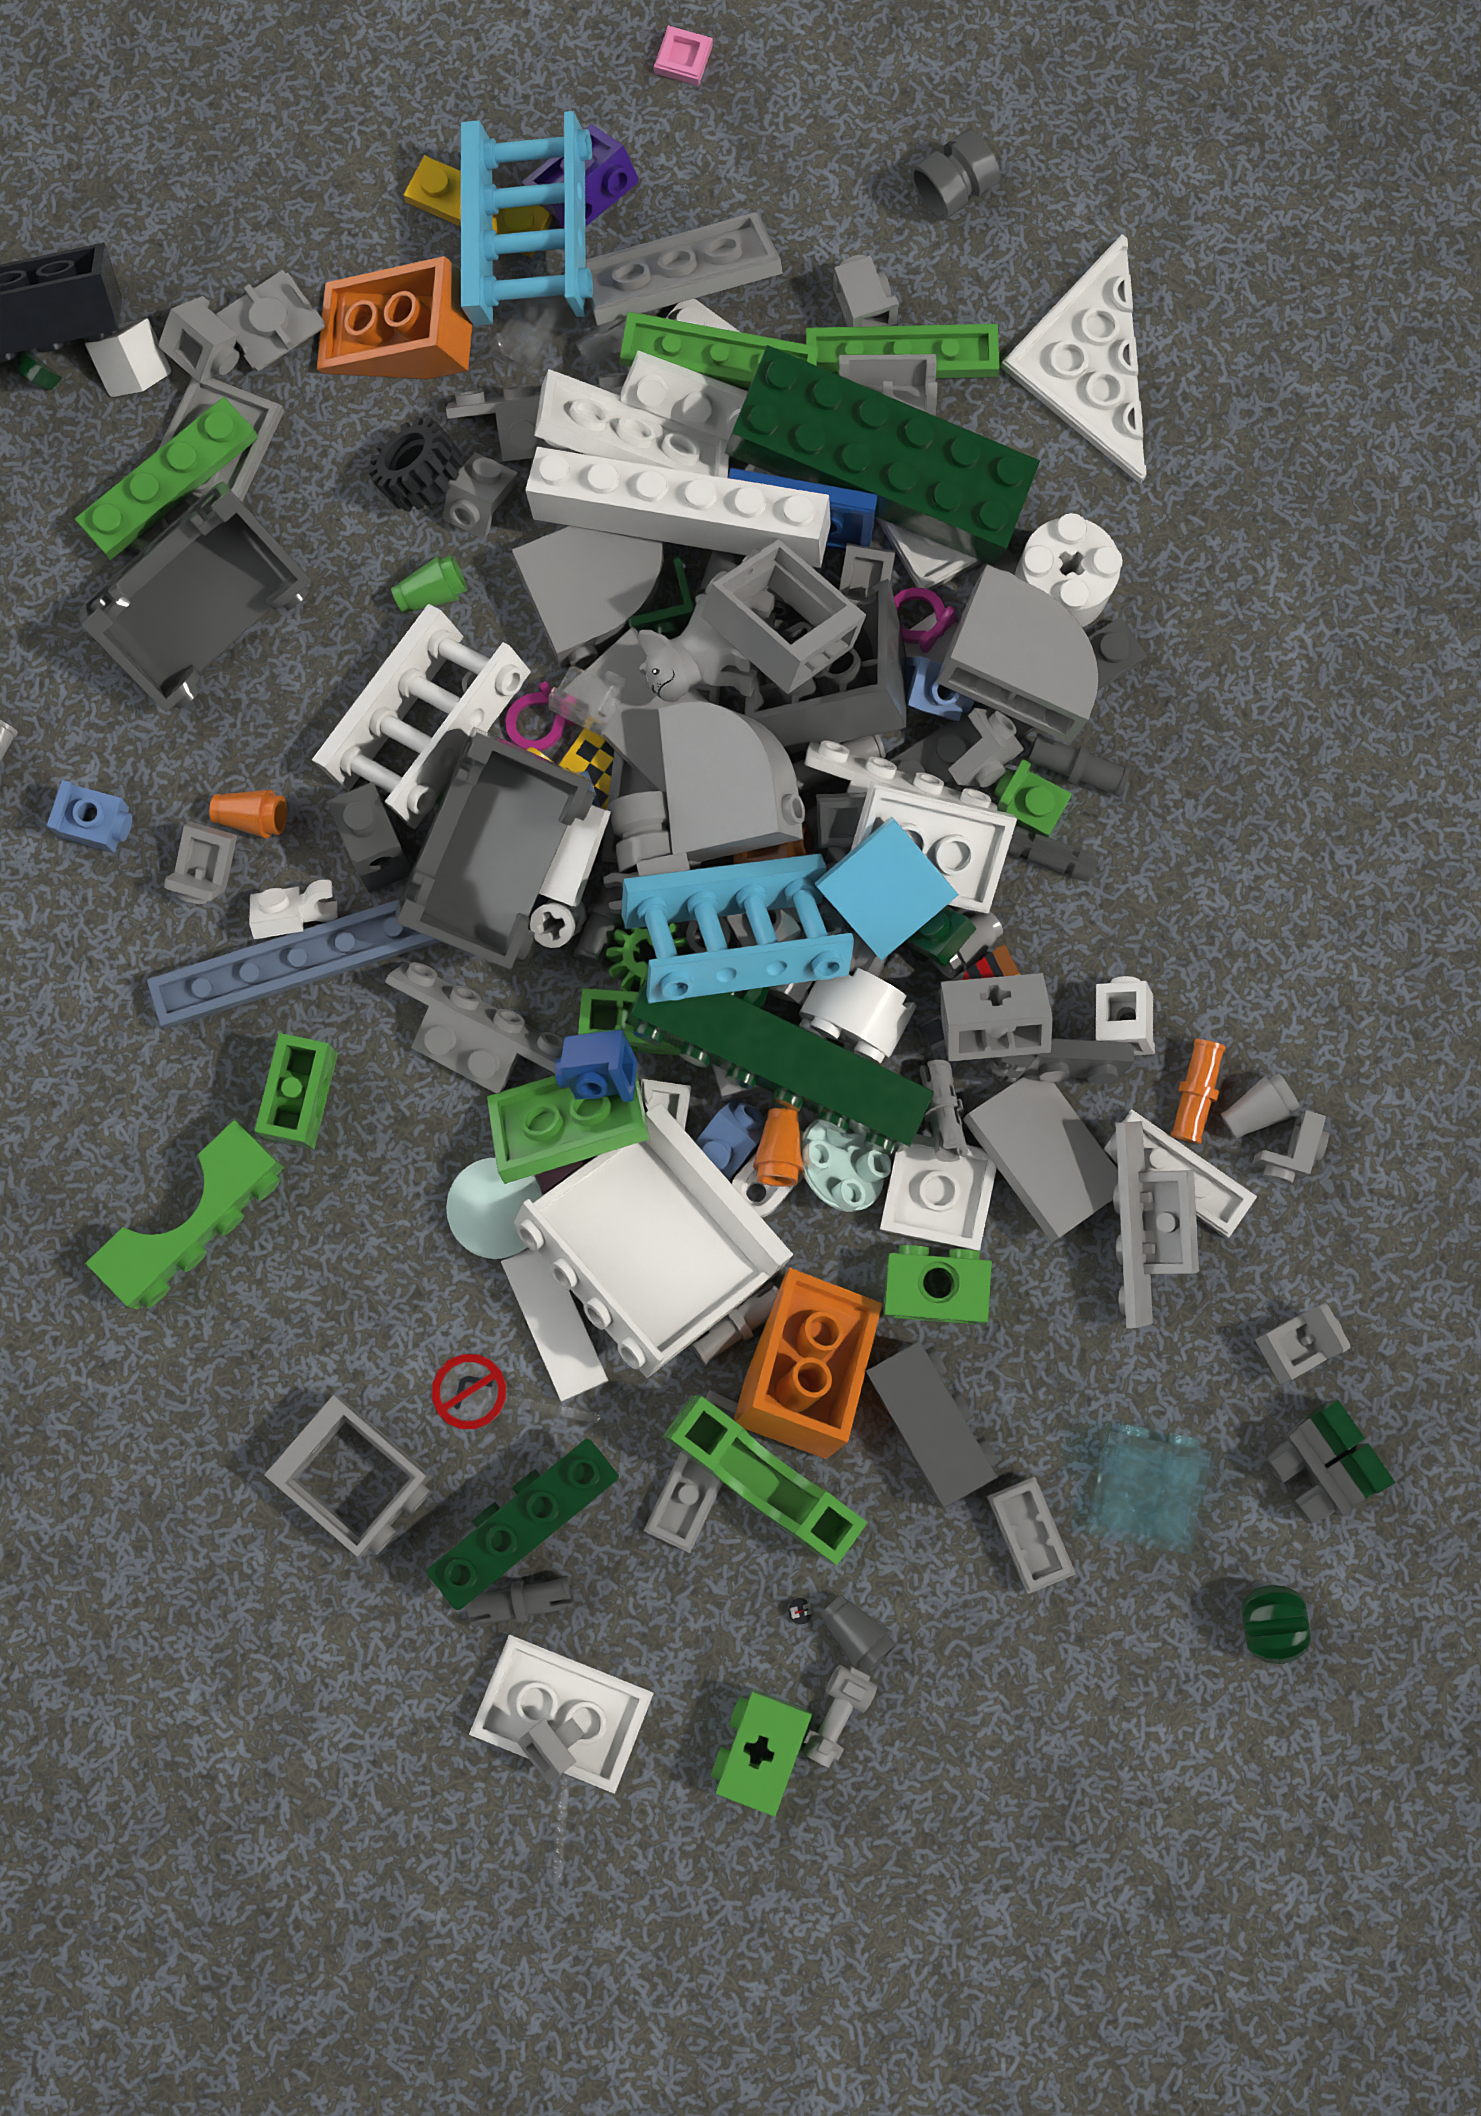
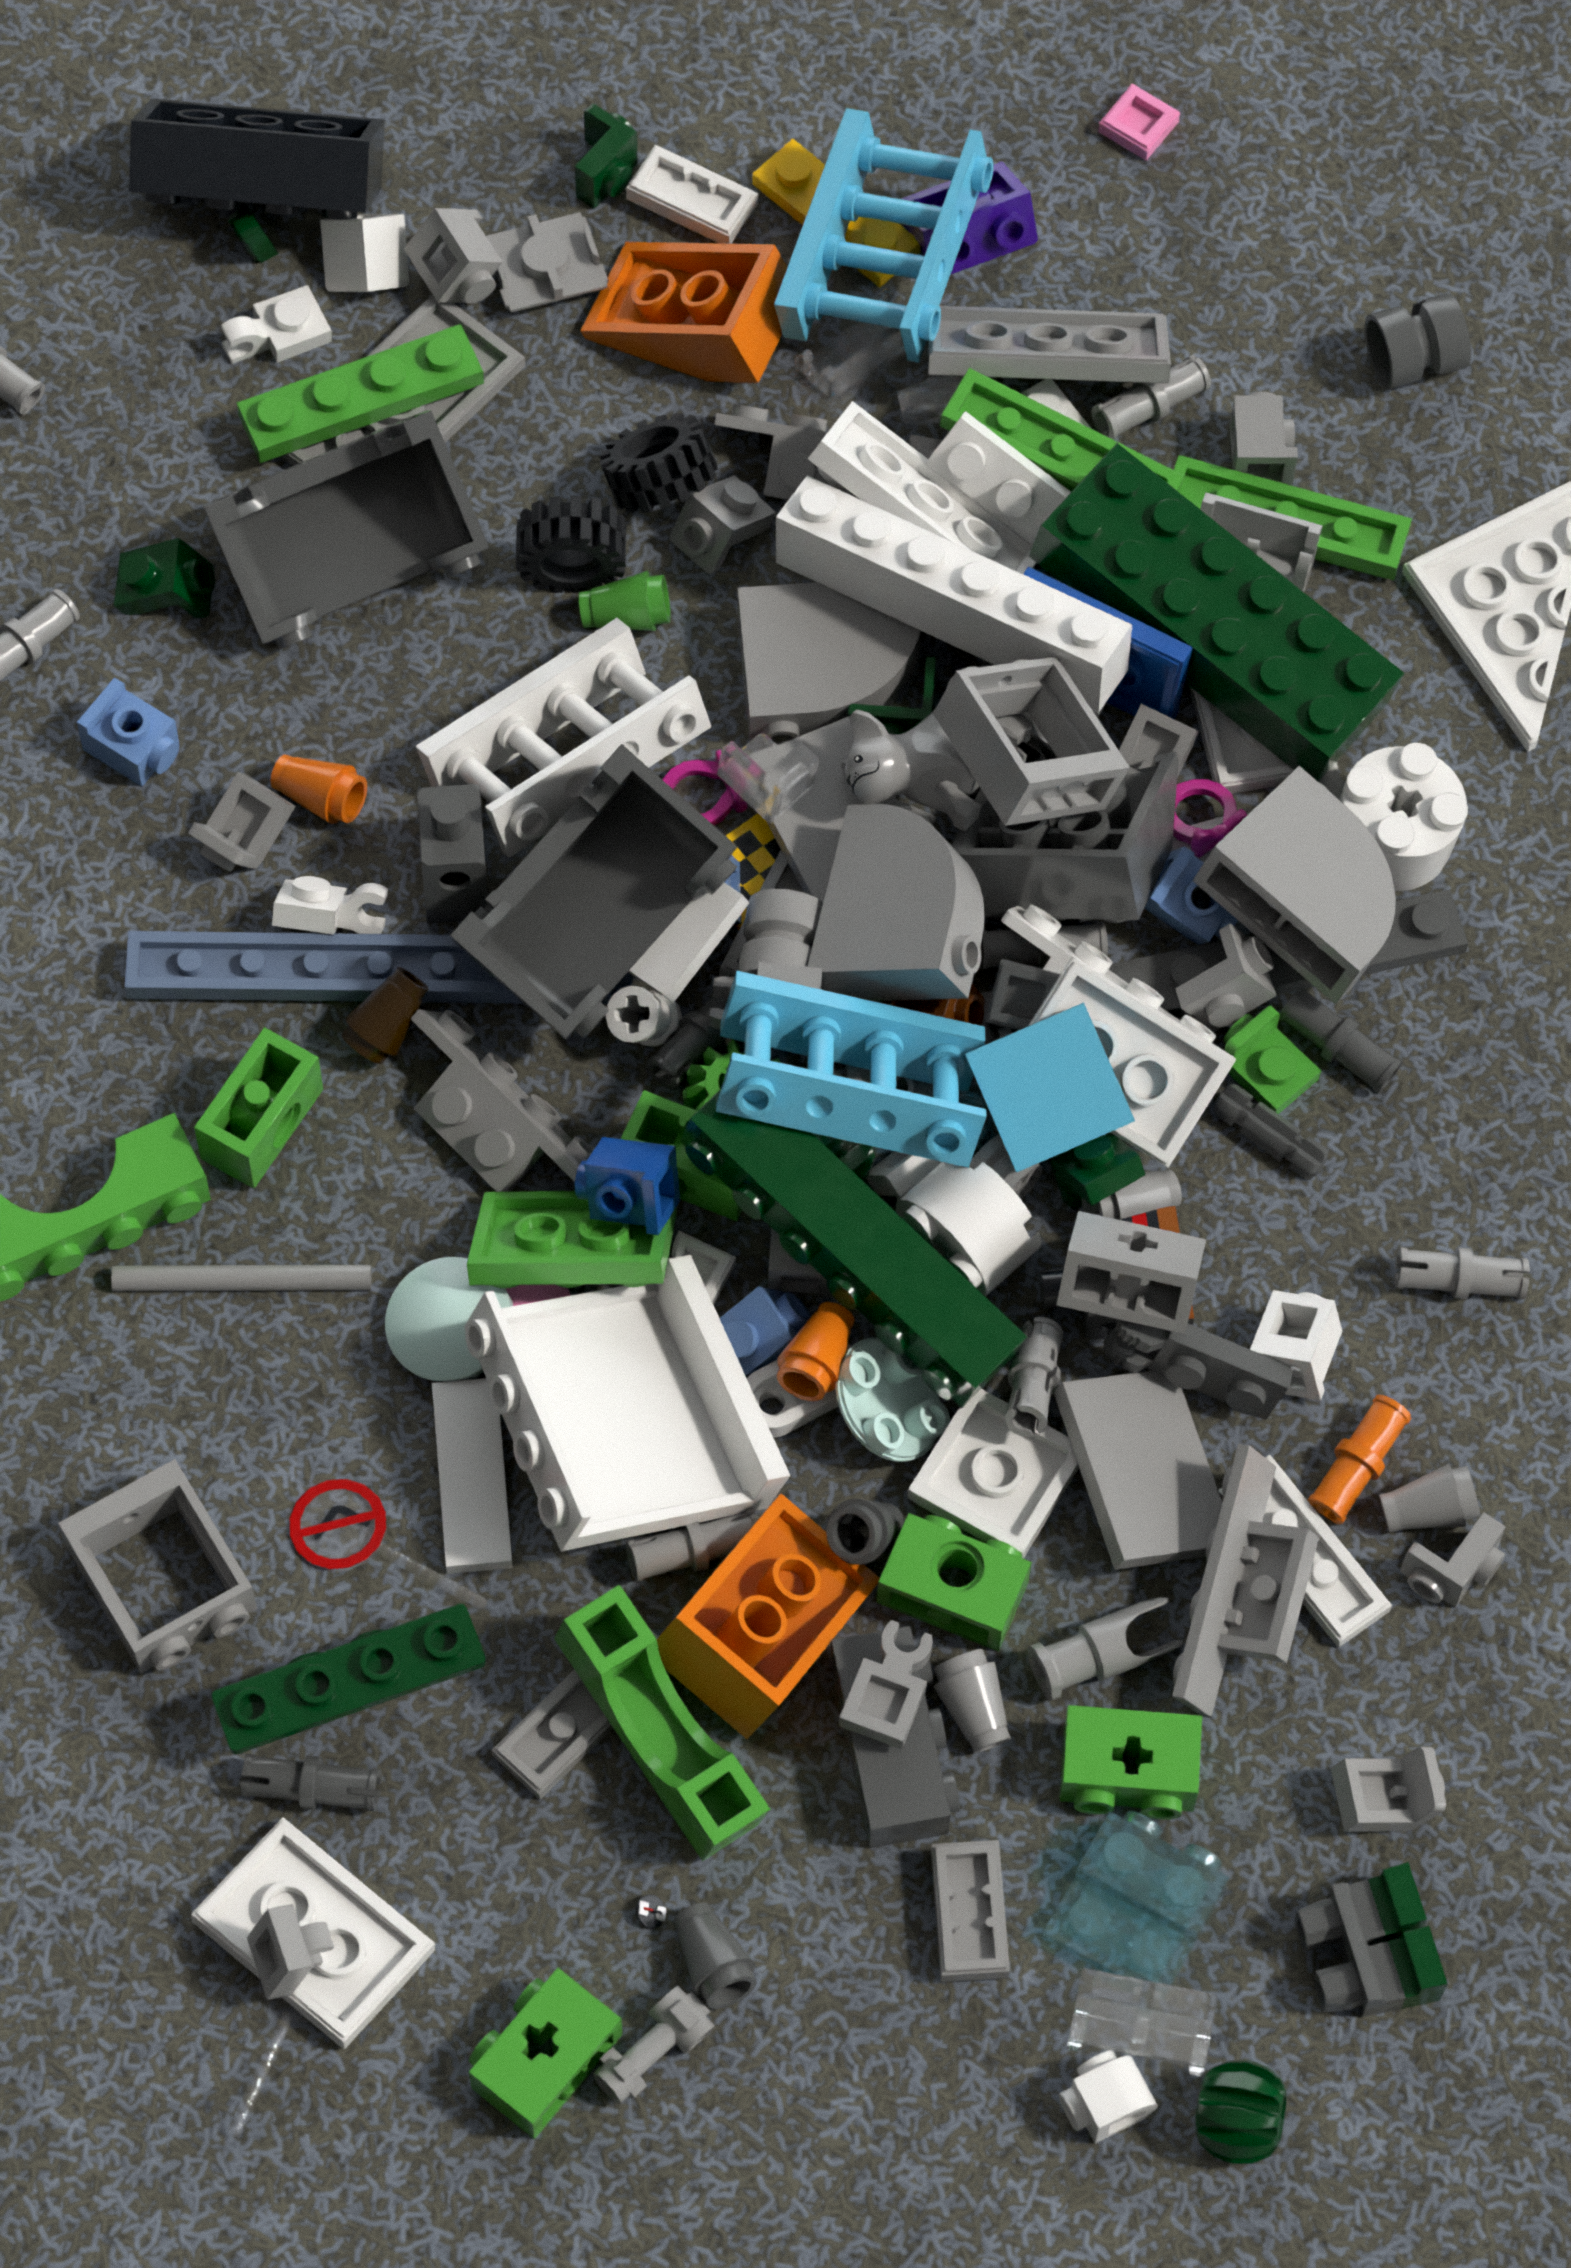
camera: 15 degrees right, 15 degrees down
(70, 680) = (164, 577): none -> dark green bracket
(88, 437) = (283, 324): none -> white plate
(291, 222) = (610, 160): none -> dark green bracket
(329, 1223) = (241, 1277): none -> light grey bar
(363, 228) = (691, 196): none -> white plate
(364, 986) = (385, 1016): none -> dark brown cone
(372, 554) = (570, 544): none -> black tyre
(771, 290) = (1151, 399): none -> light grey pin
(860, 1275) = (862, 1529): none -> dark grey cone
(923, 1408) = (886, 1694): none -> light grey plate
(979, 1371) = (974, 1699): none -> light grey cone
(1058, 1303) = (1095, 1651): none -> light grey piece
(1136, 1366) = (1165, 1752): none -> bright green brick
(1176, 1643) = (1107, 2096): none -> white plate
(1184, 1583) = (1143, 2019): none -> clear hinge
(1225, 920) = (1461, 1273): none -> light grey pin

